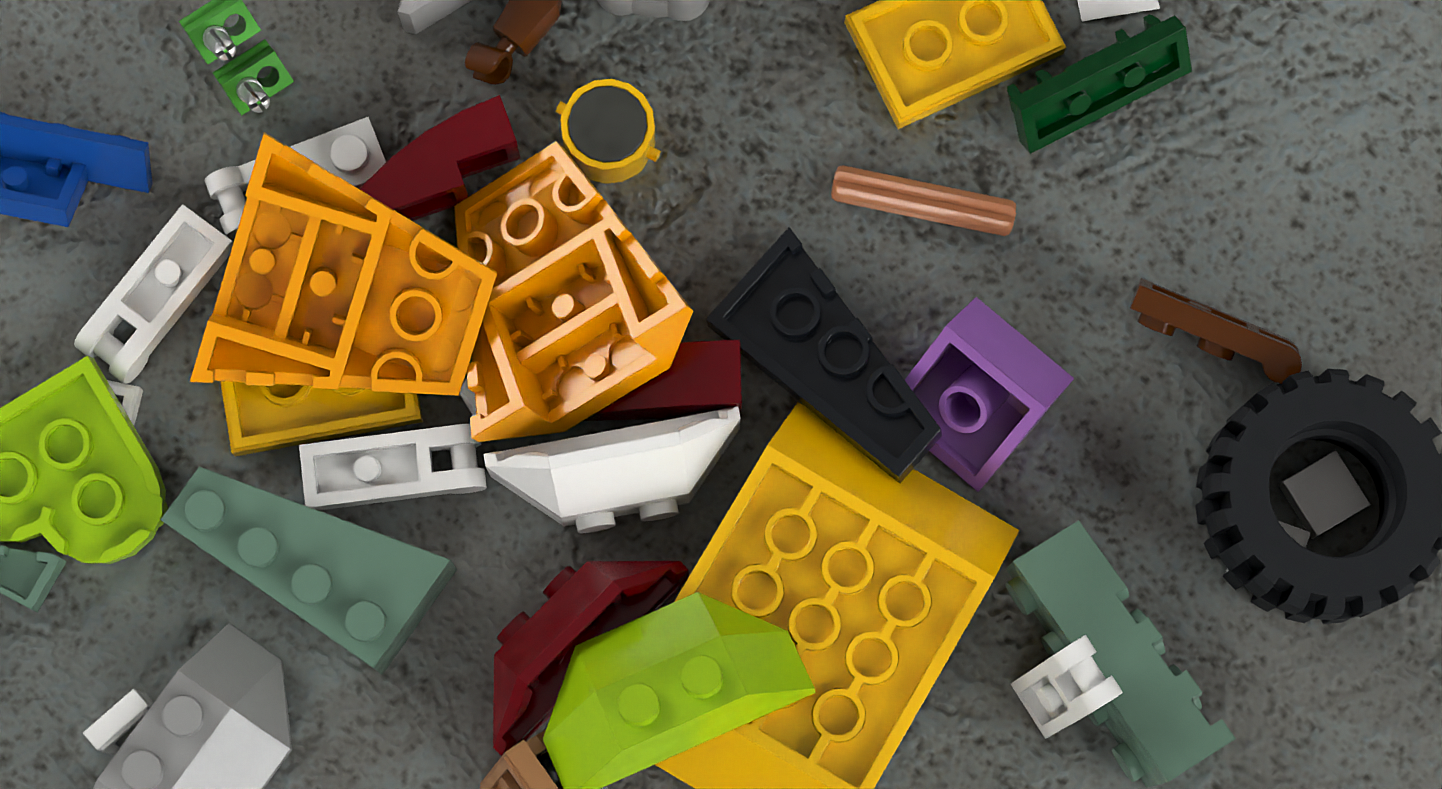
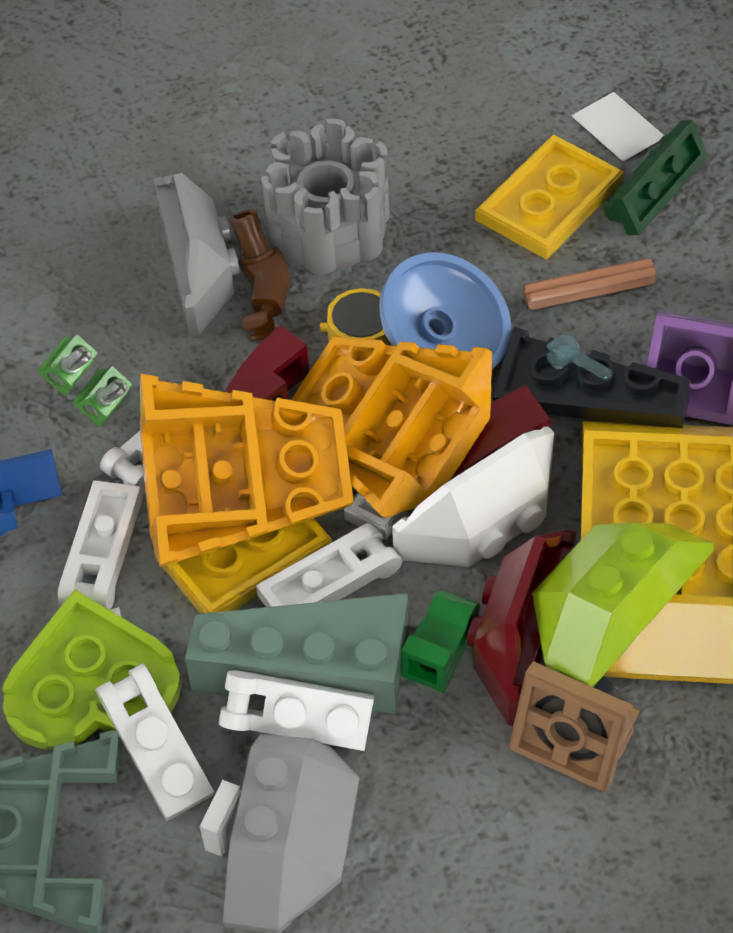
camera: 20 degrees left, 25 degrees down
(90, 596) = (155, 744): none -> white plate
(261, 632) = (297, 709): none -> white plate
(473, 615) = (439, 640): none -> green leg
(743, 189) = (451, 299): none -> medium blue dish
(817, 309) = (567, 350): none -> clear light blue hand

